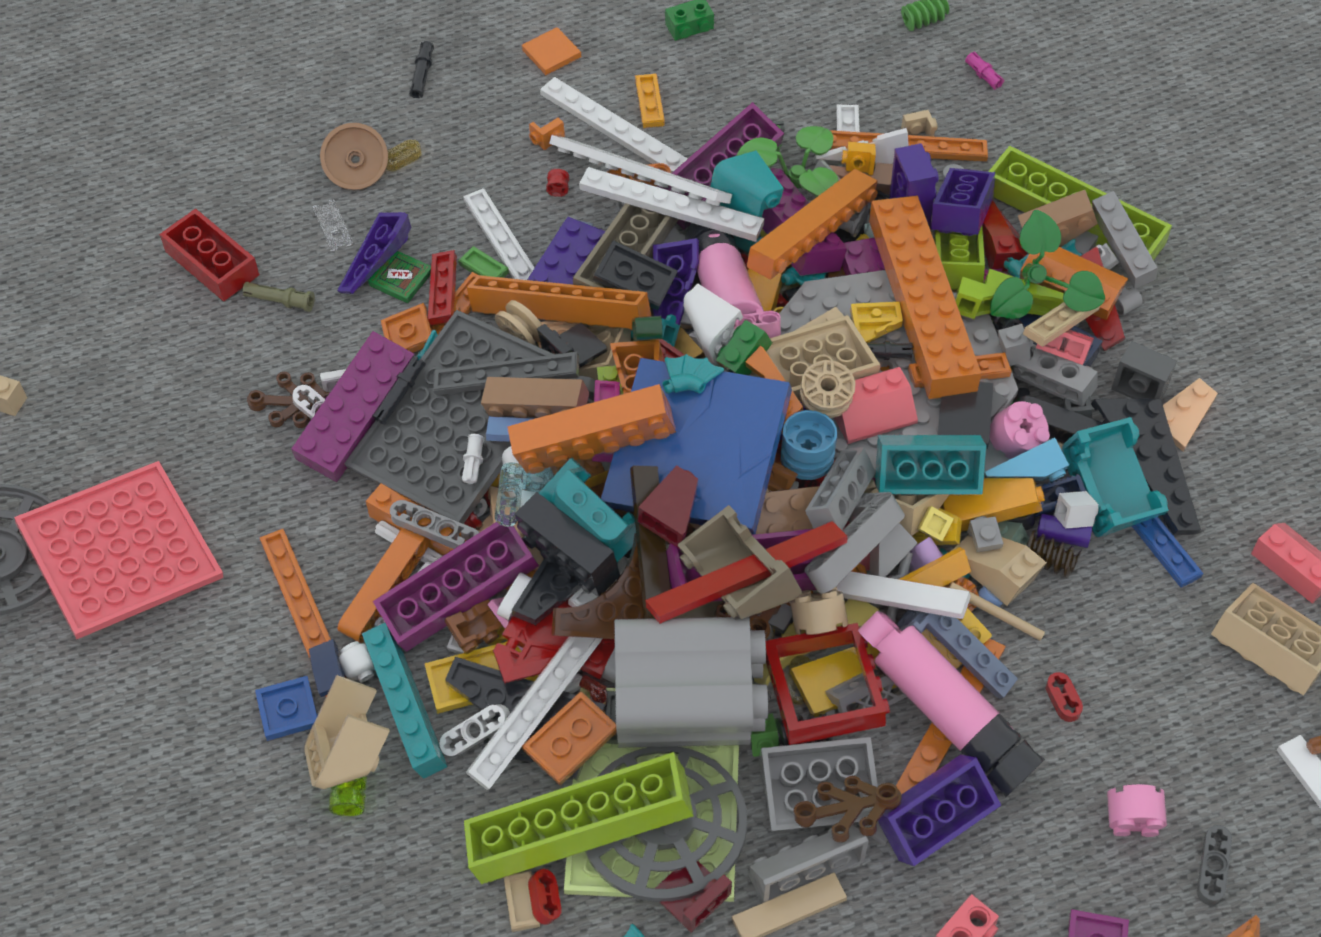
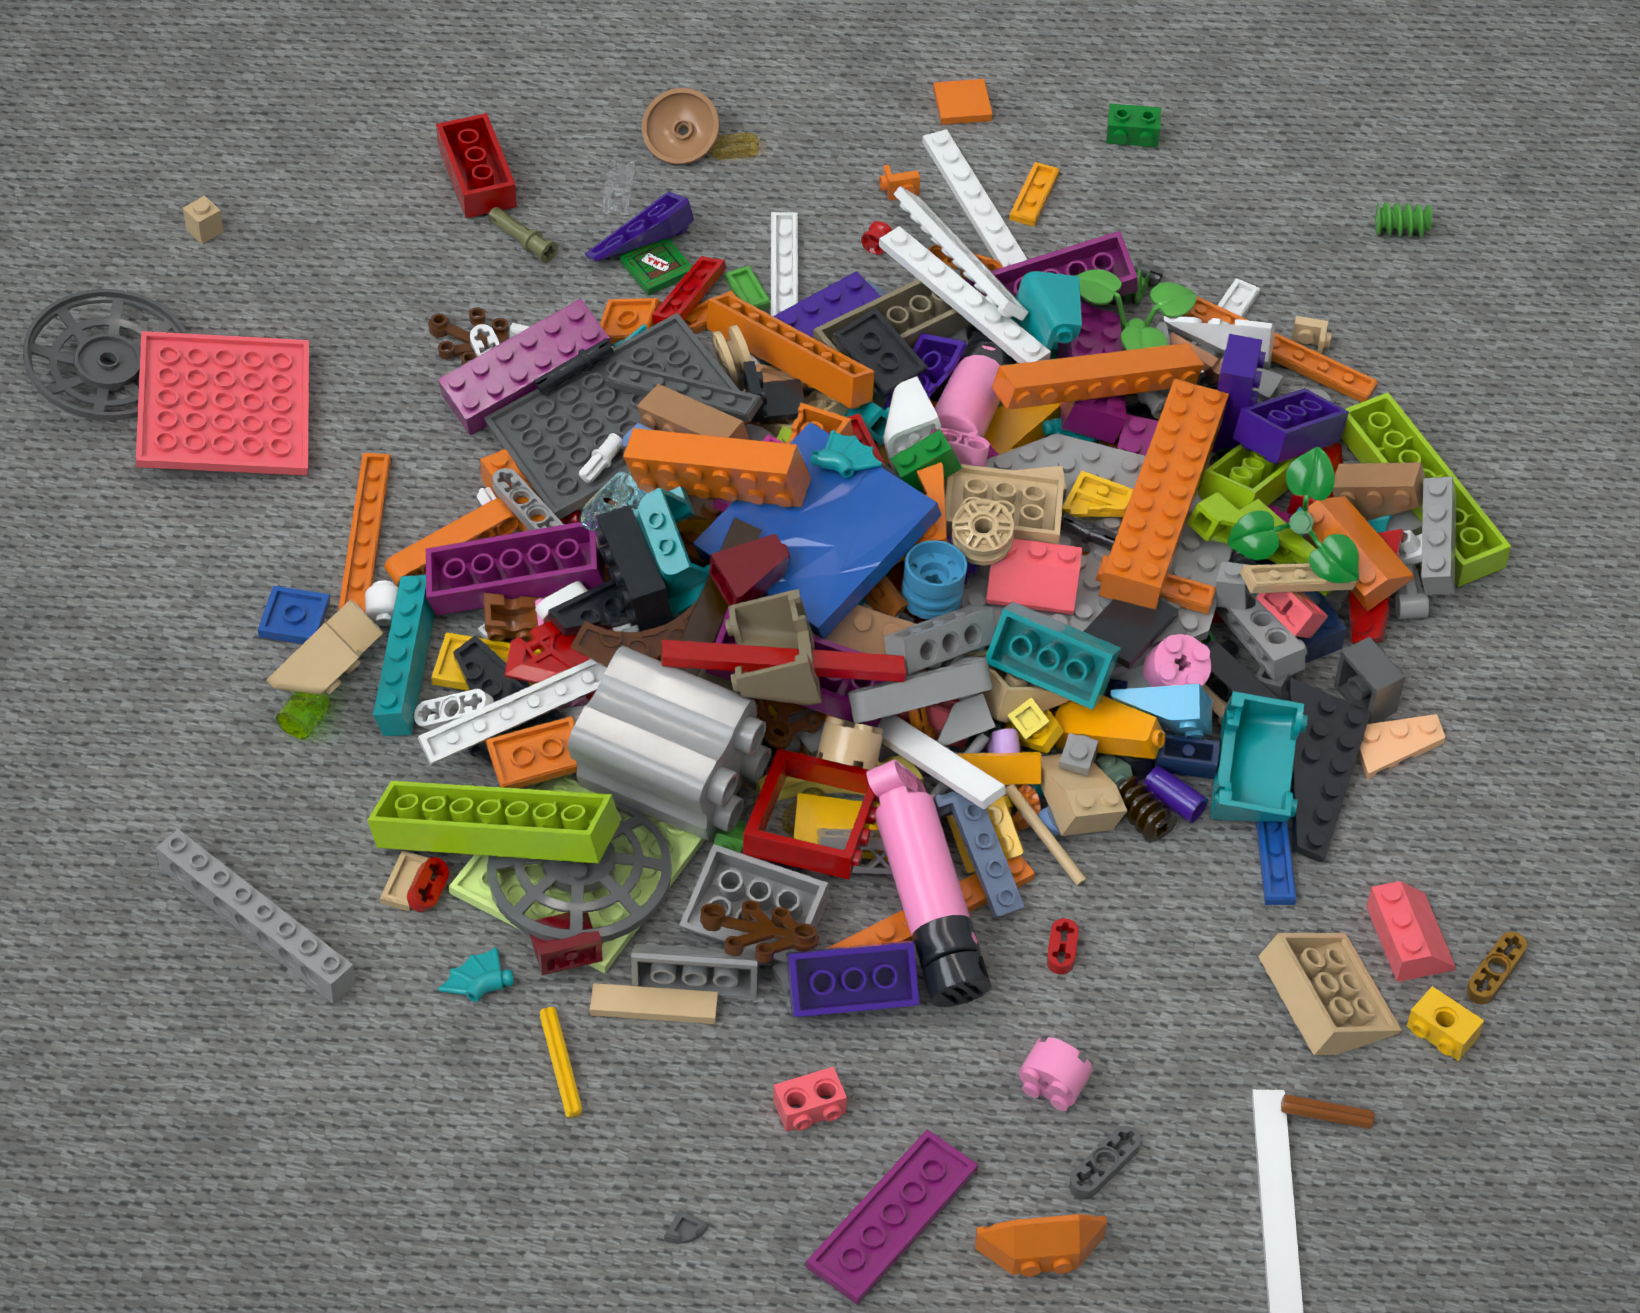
camera: 25 degrees right, 5 degrees down
(325, 665) = (352, 586): dark blue slope -> none
(423, 63) = (816, 60): black pin -> none
(647, 328) = (838, 399): dark green beam -> none
(859, 157) = (1206, 335): light orange brick -> none
(984, 70) = (1429, 308): dark pink pin -> none
(1076, 509) = (1194, 774): white brick -> none

